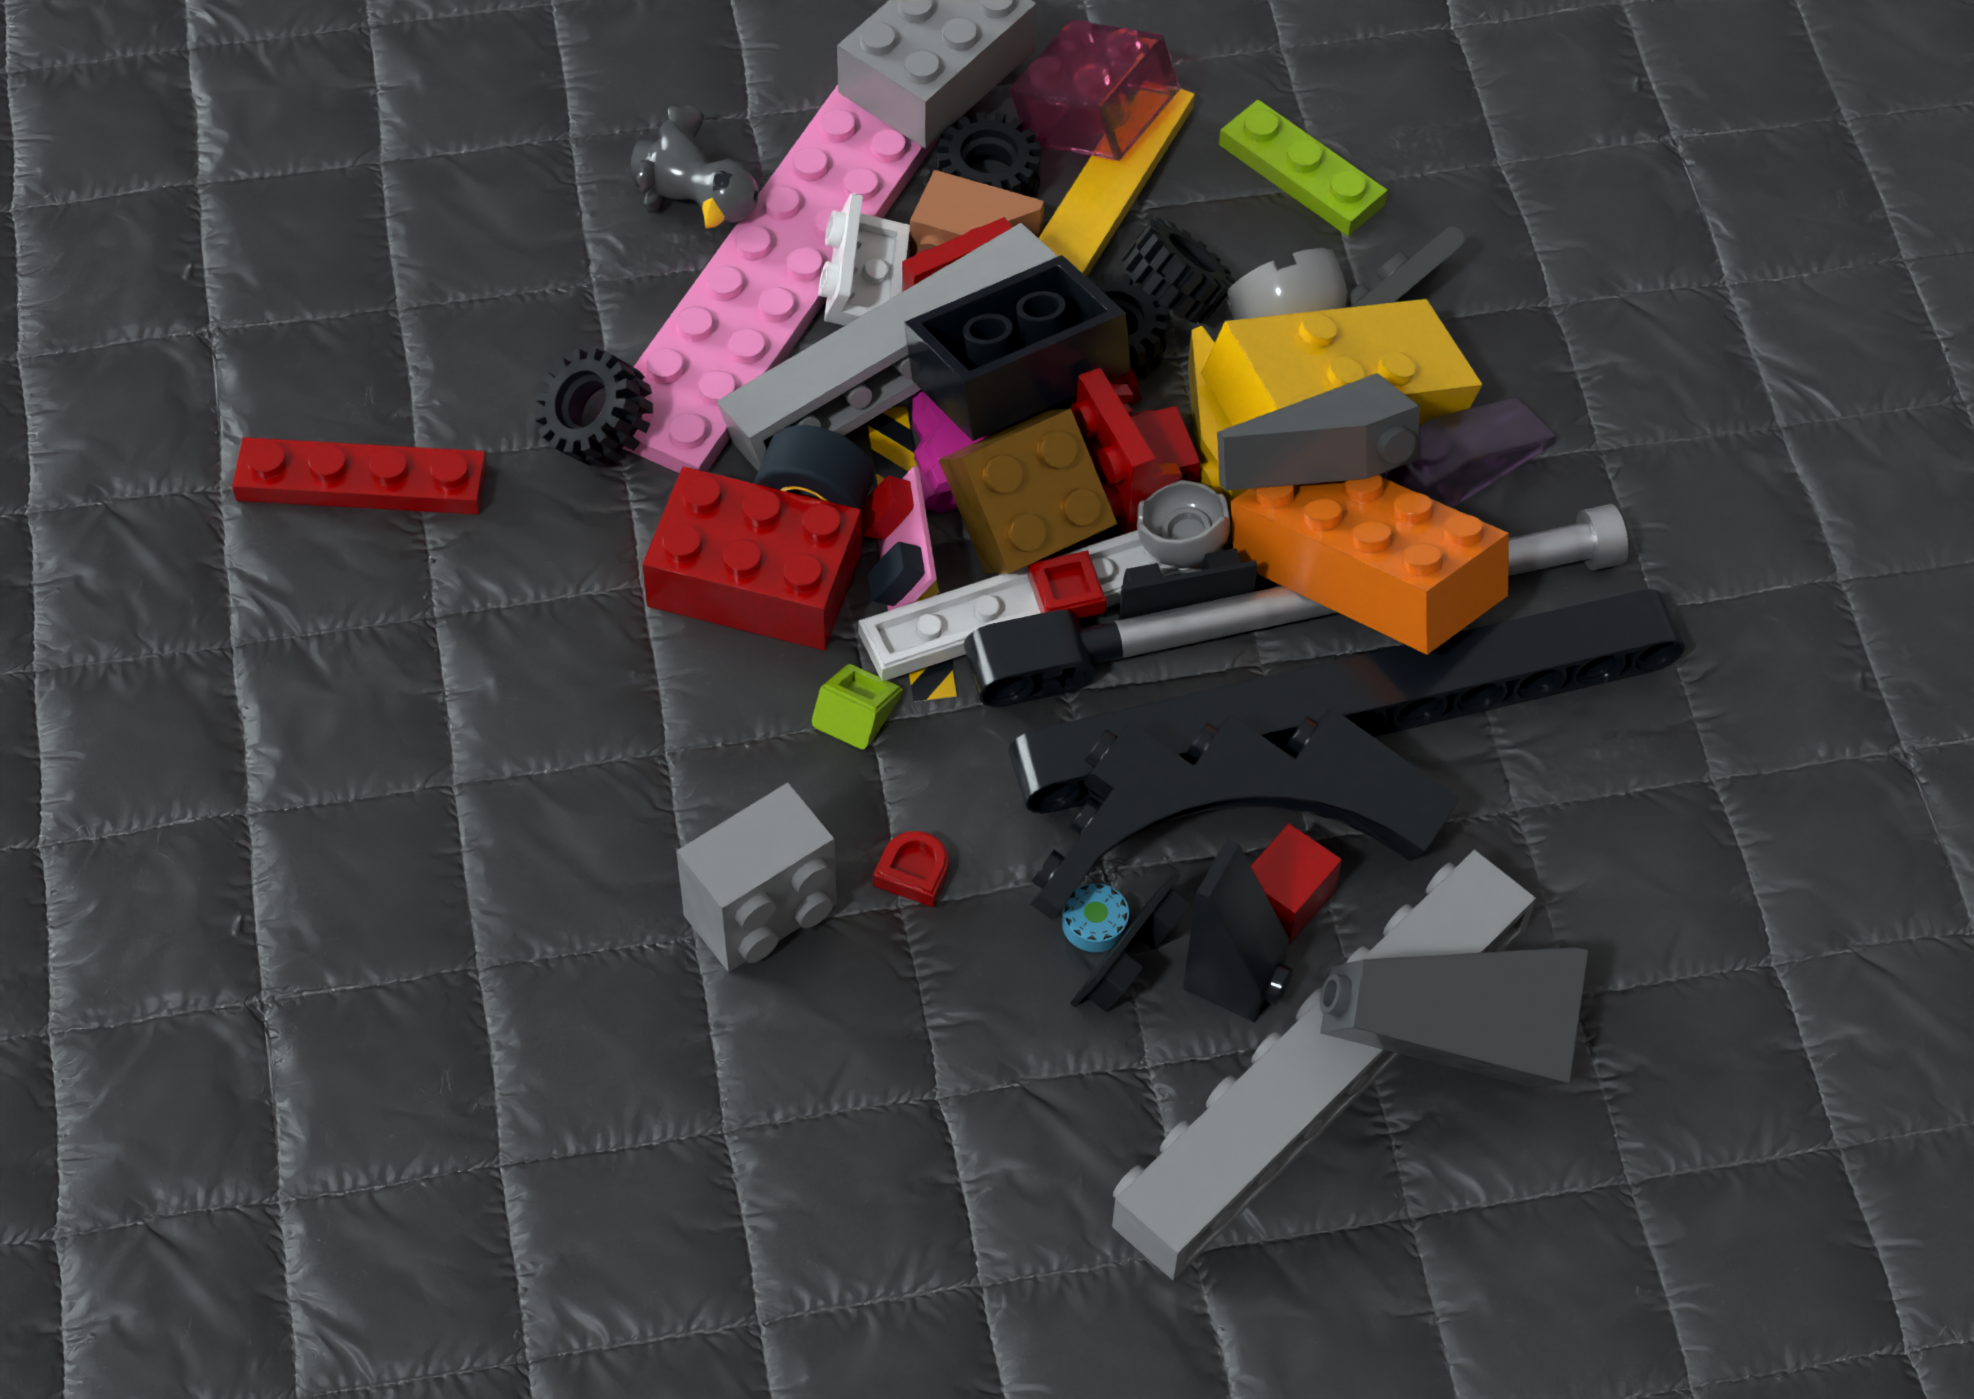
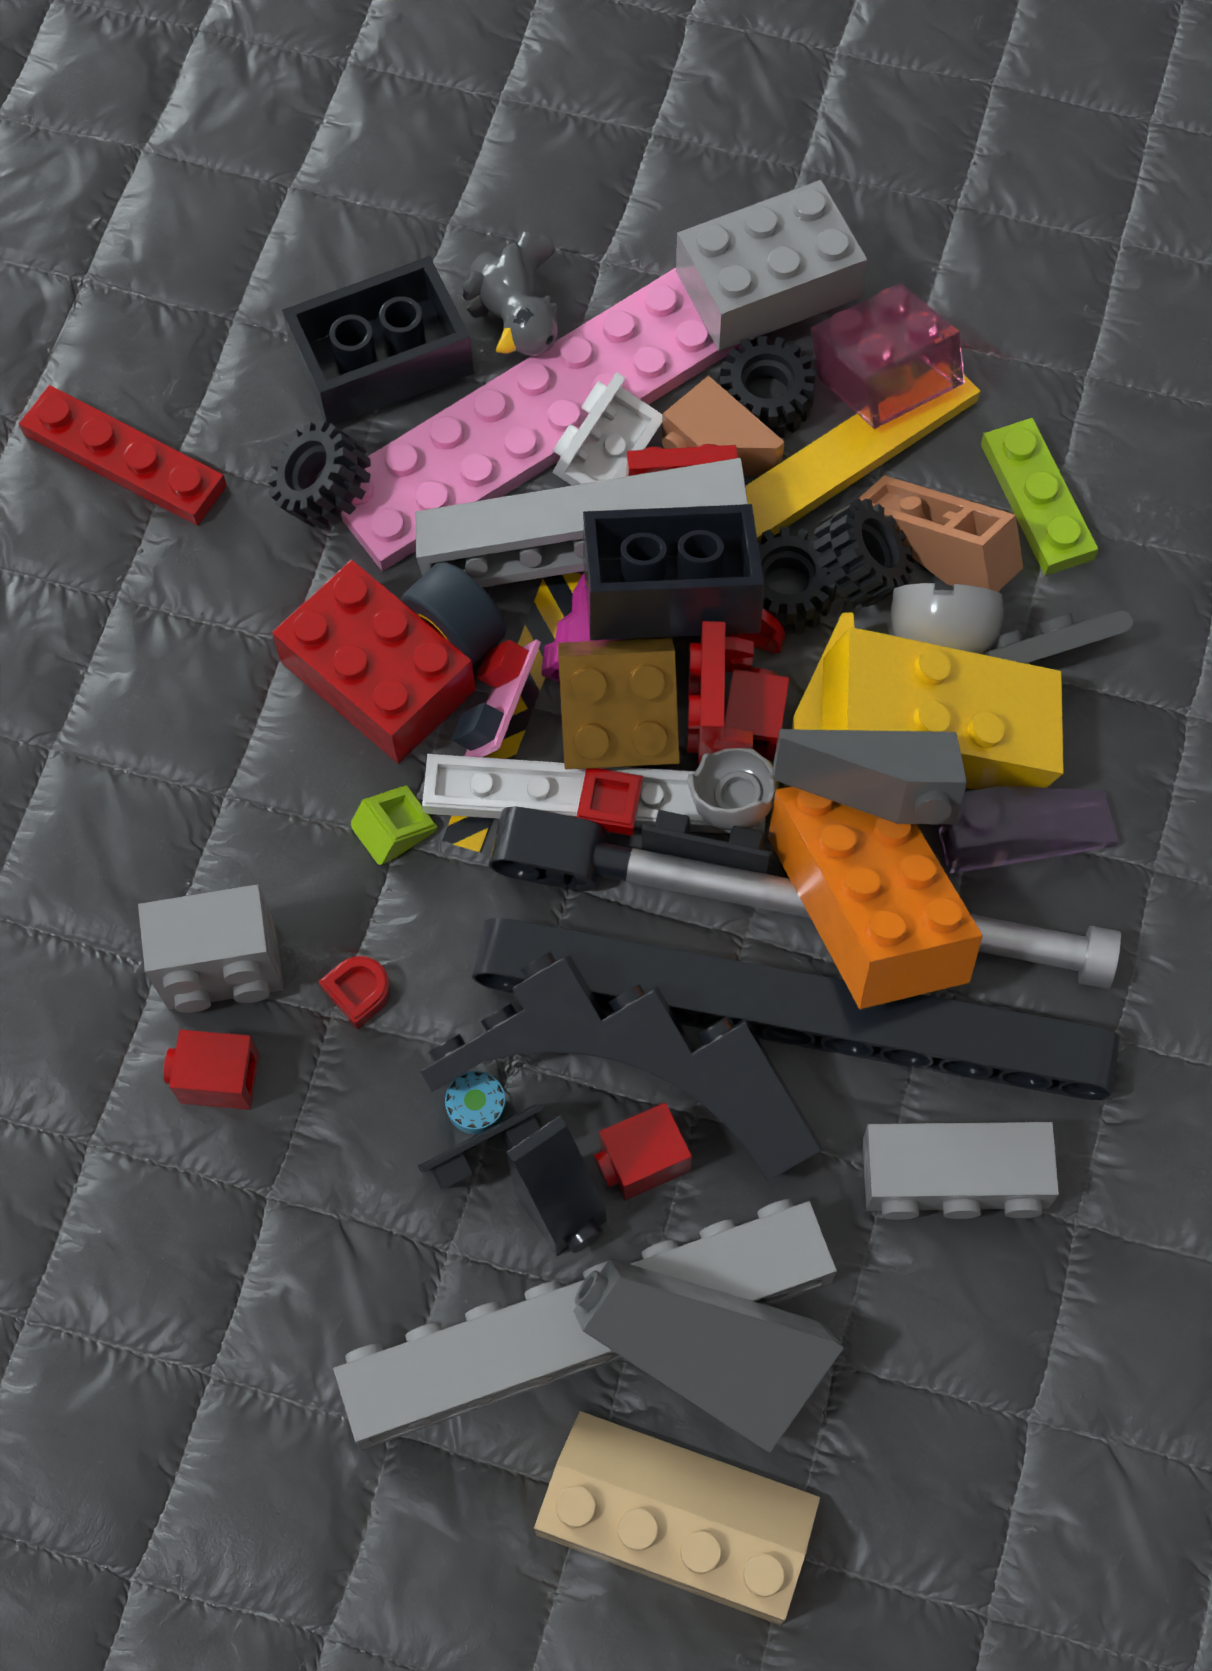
camera: 30 degrees right, 10 degrees up
(578, 262) = (379, 341): none -> black brick
(818, 997) = (212, 1069): none -> red brick
(1249, 223) = (952, 535): none -> nougat slope
(1517, 1193) = (678, 1517): none -> tan slope
(1585, 770) = (960, 1169): none -> light grey brick

